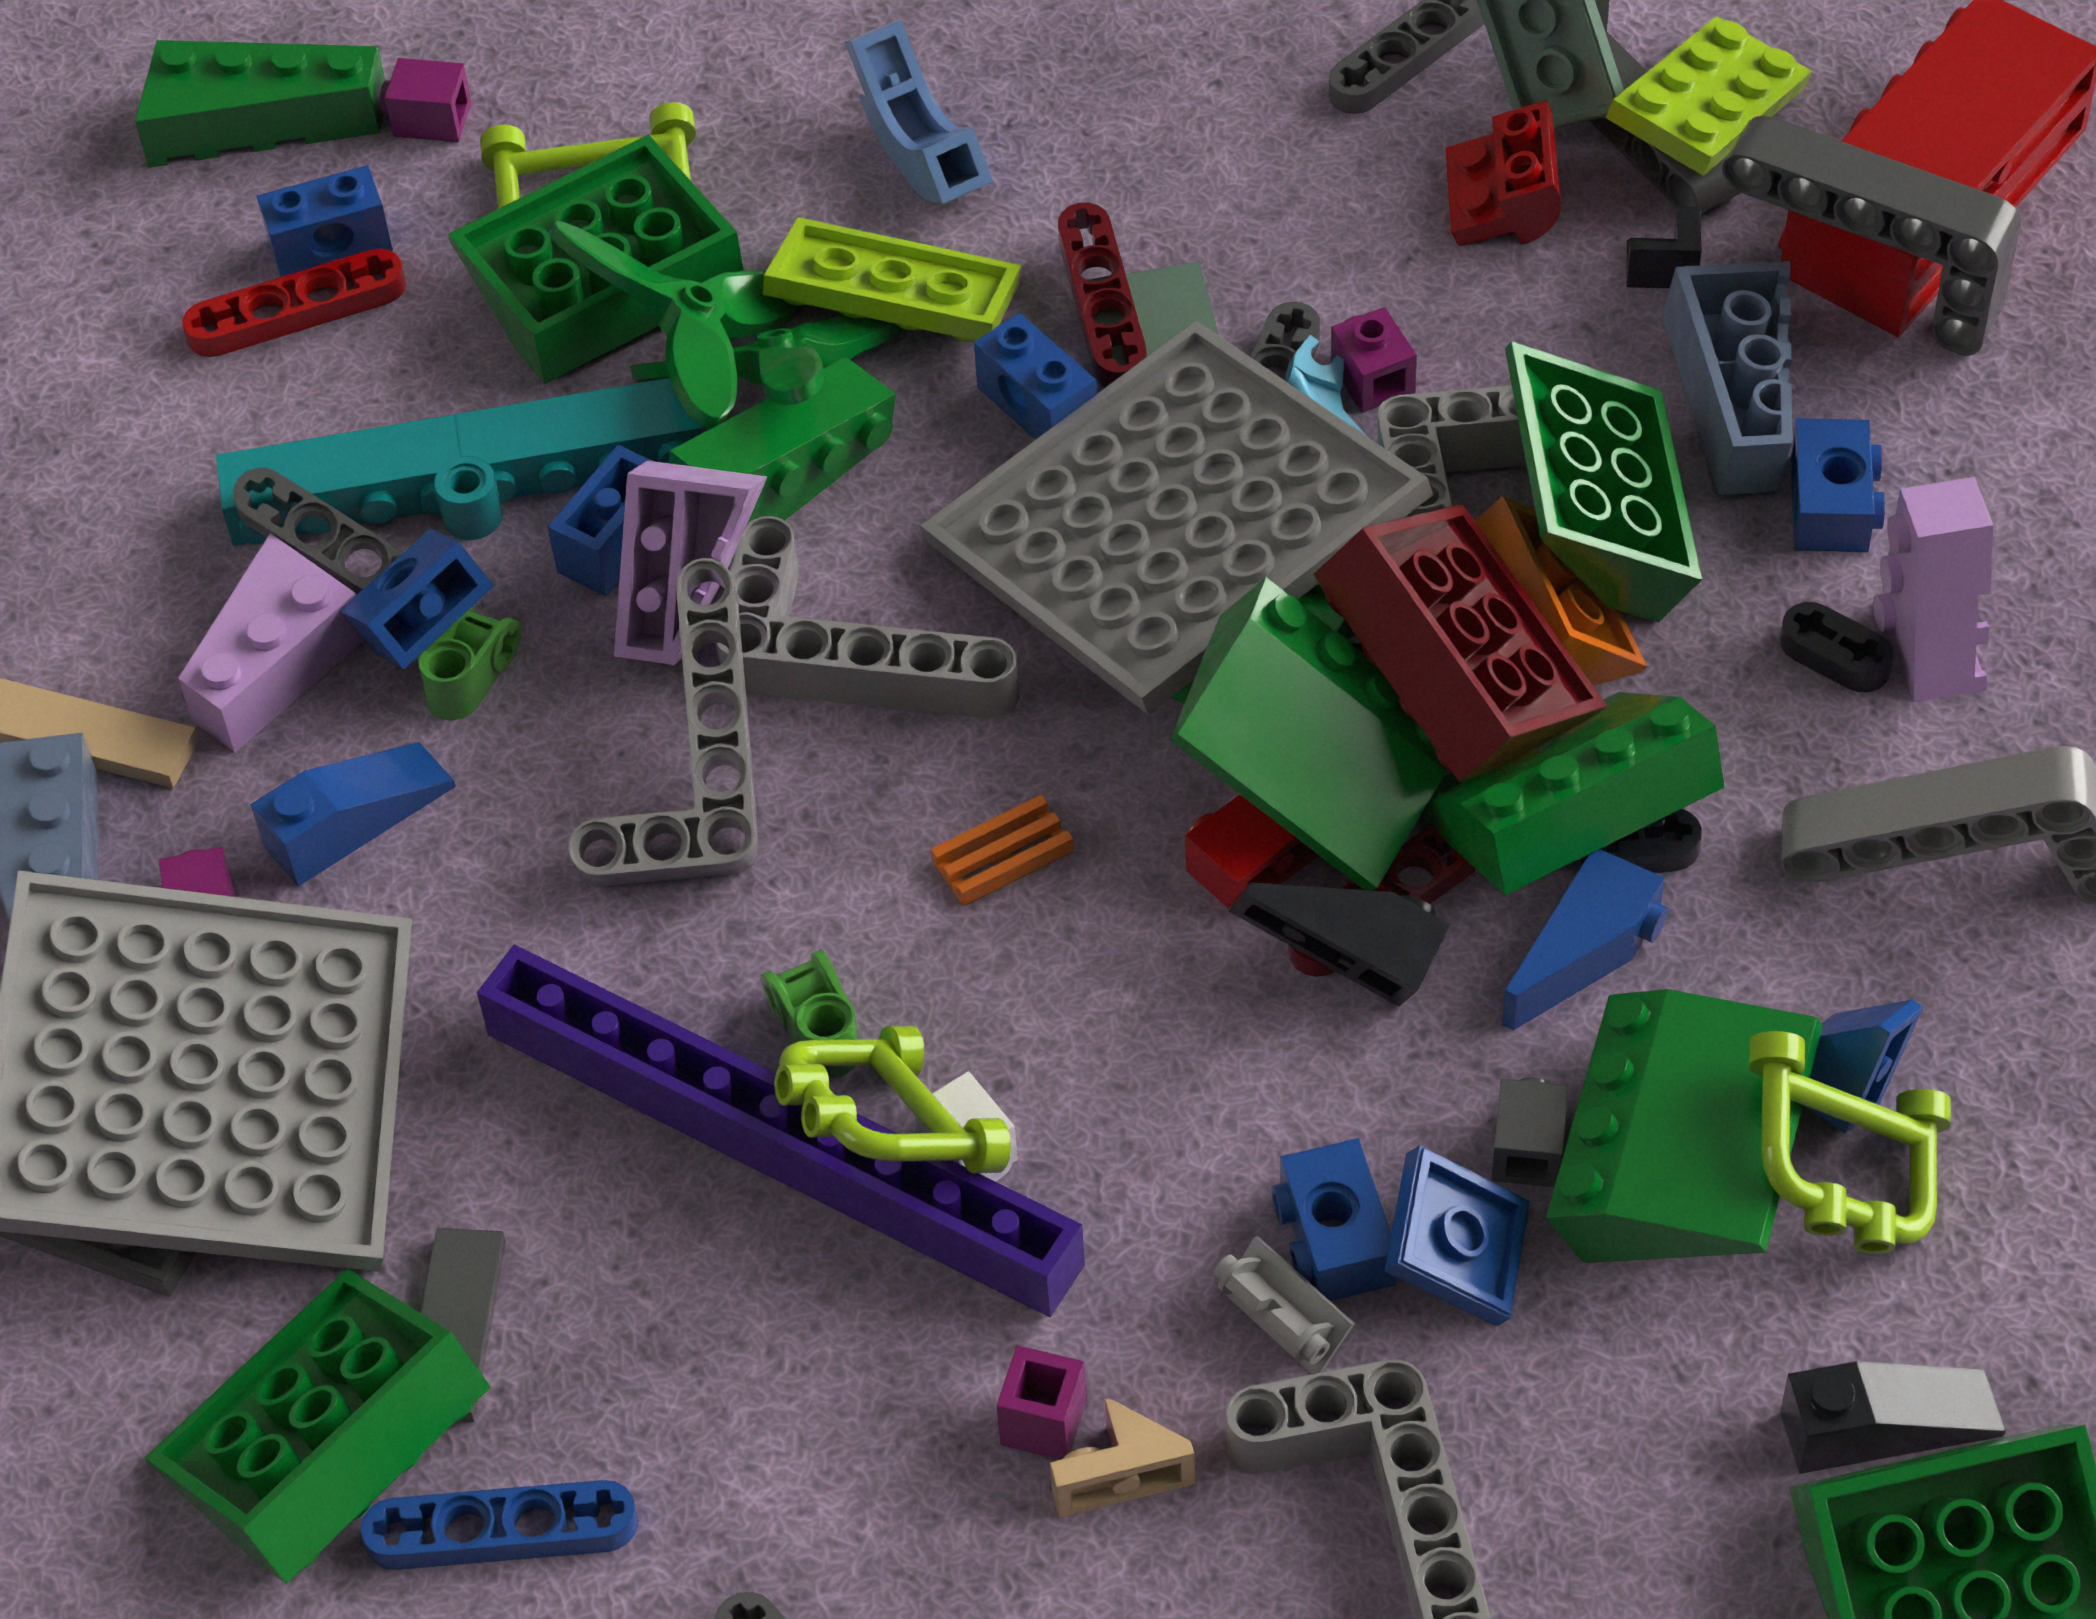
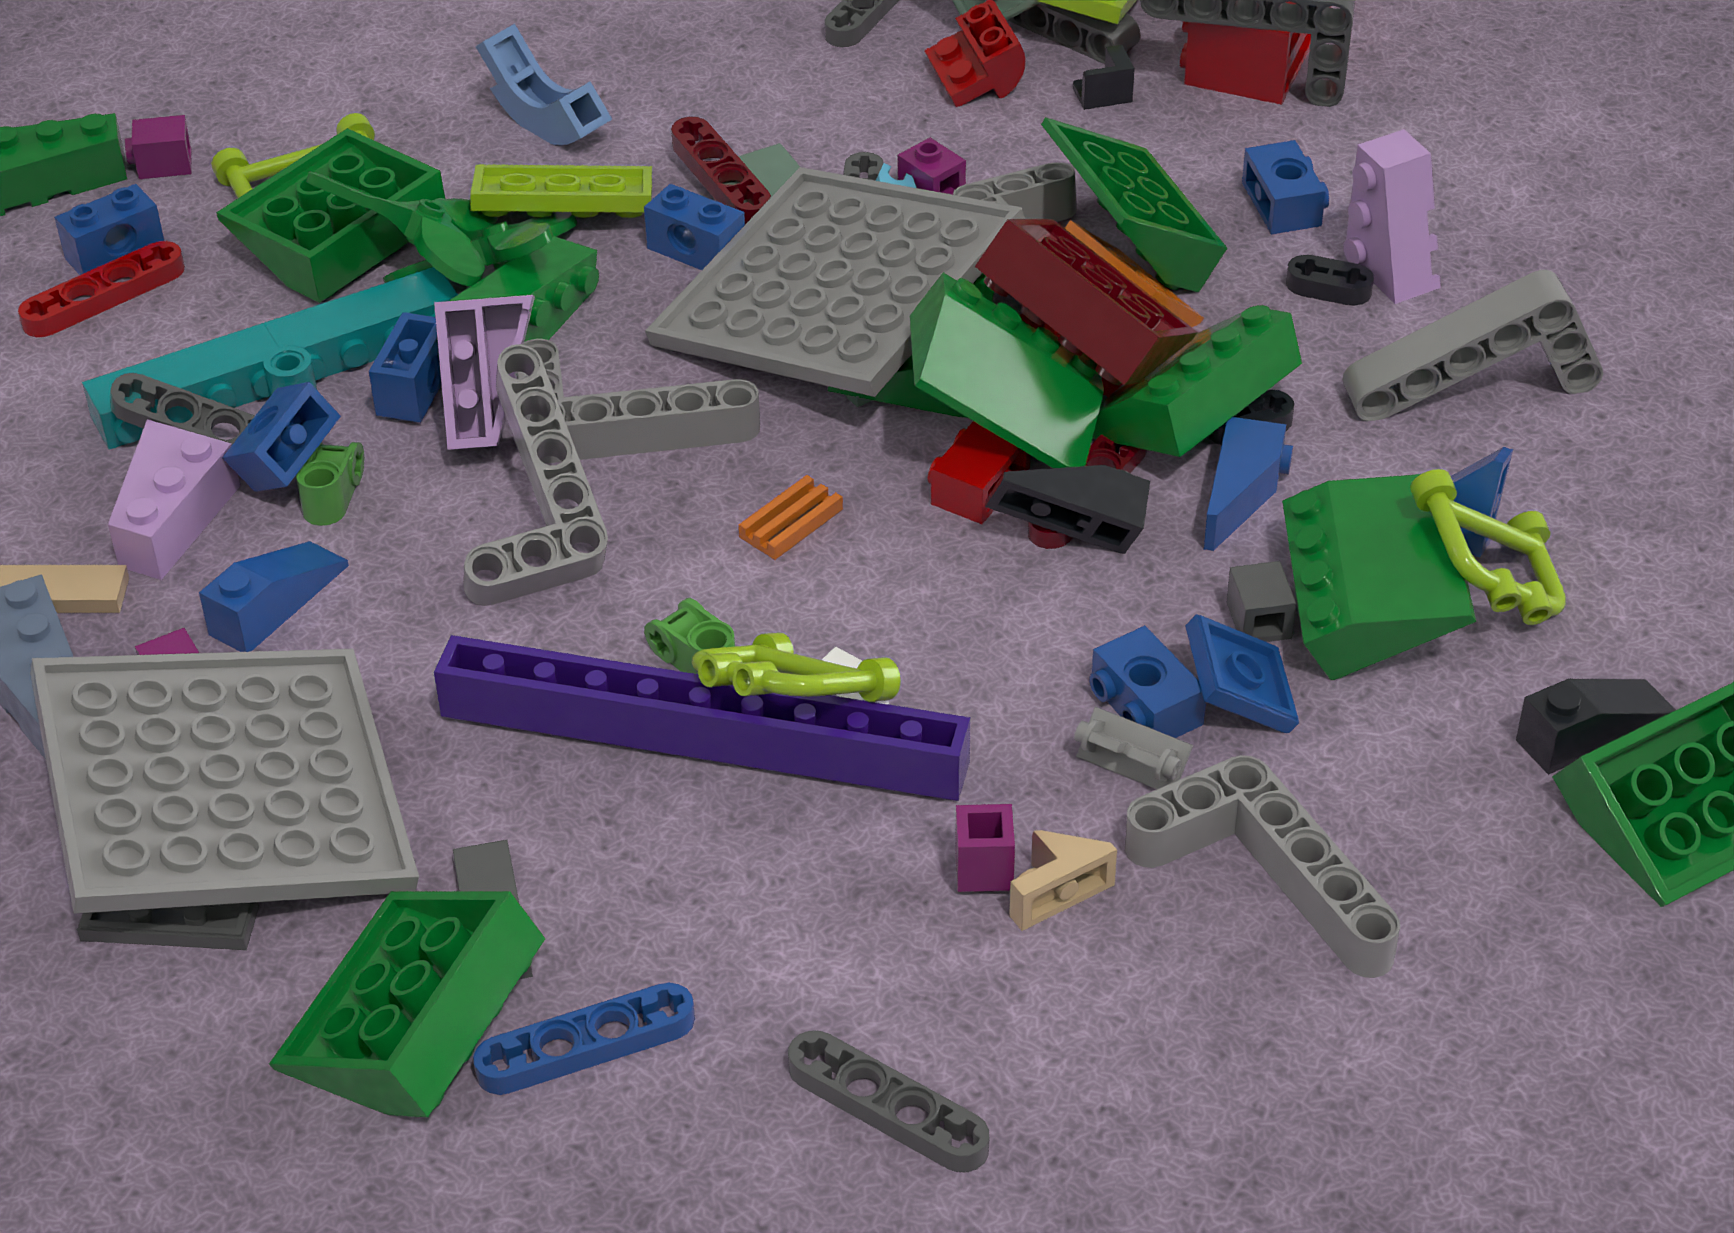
camera: 20 degrees left, 10 degrees down
(1734, 366) = (1188, 132): sand blue wedge -> none

